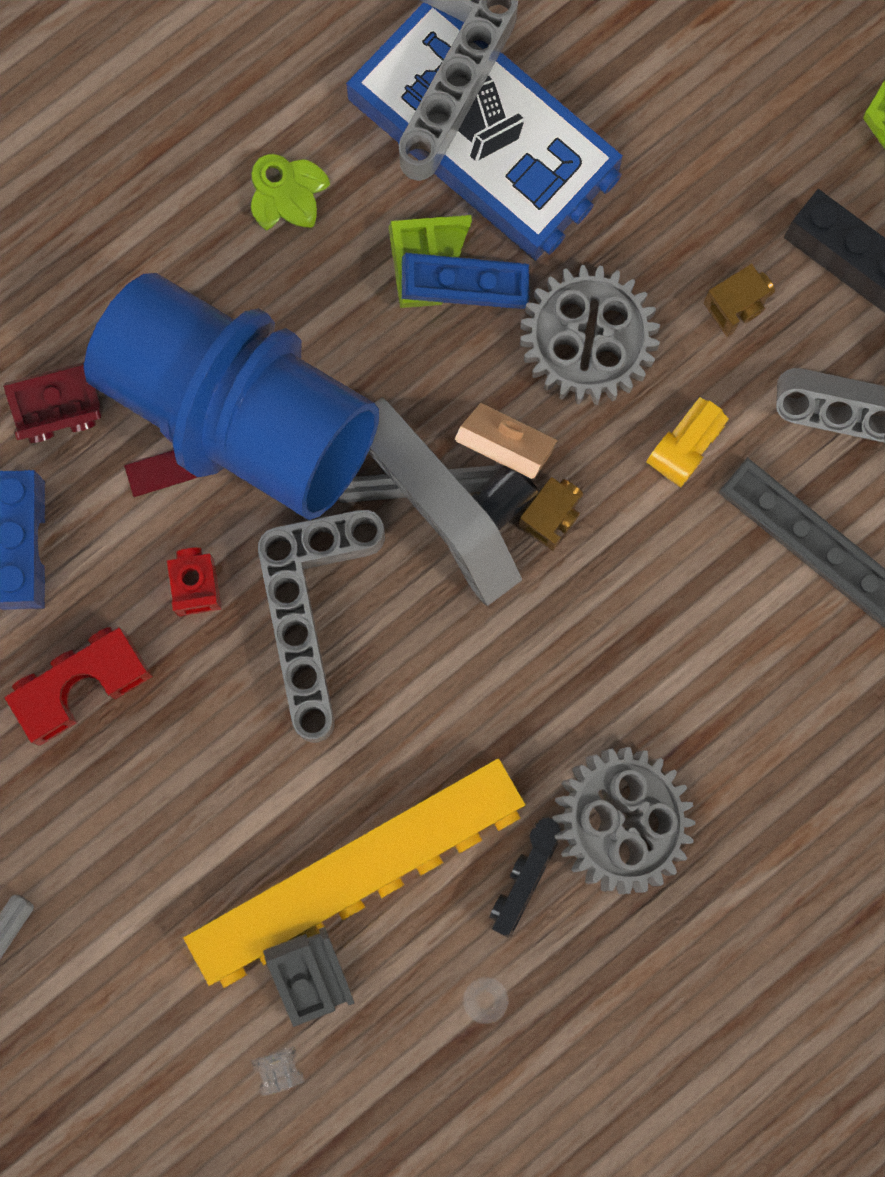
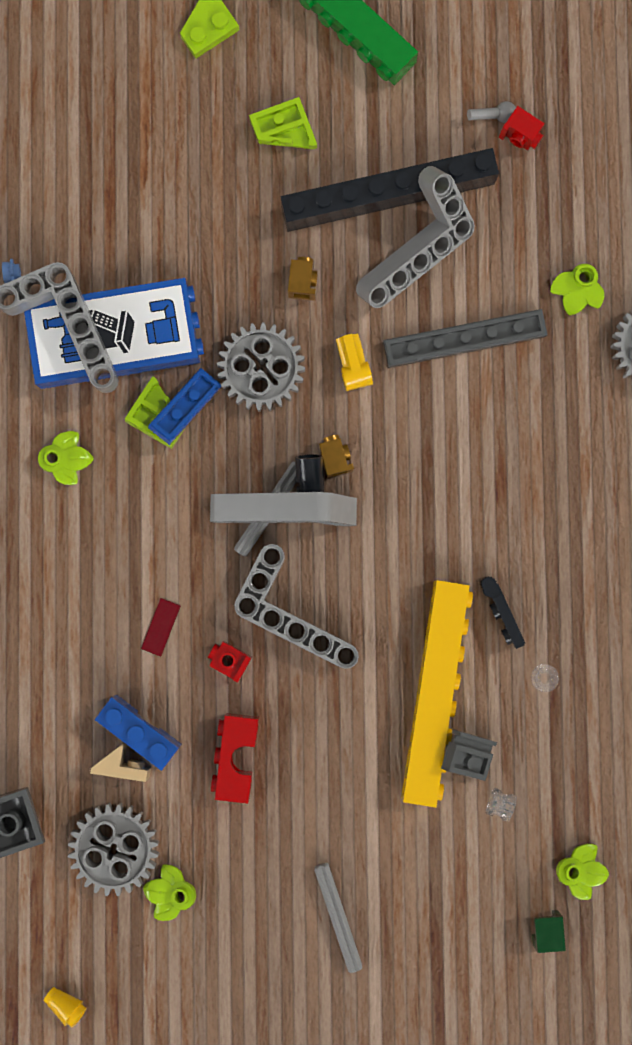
camera: 55 degrees left, 5 degrees up
(53, 403) = (82, 659): dark red bracket -> none
(231, 394) = (153, 570): blue piece -> none
(506, 440) = (283, 451): light nougat plate -> none
(600, 848) = (508, 520): light grey gear -> none

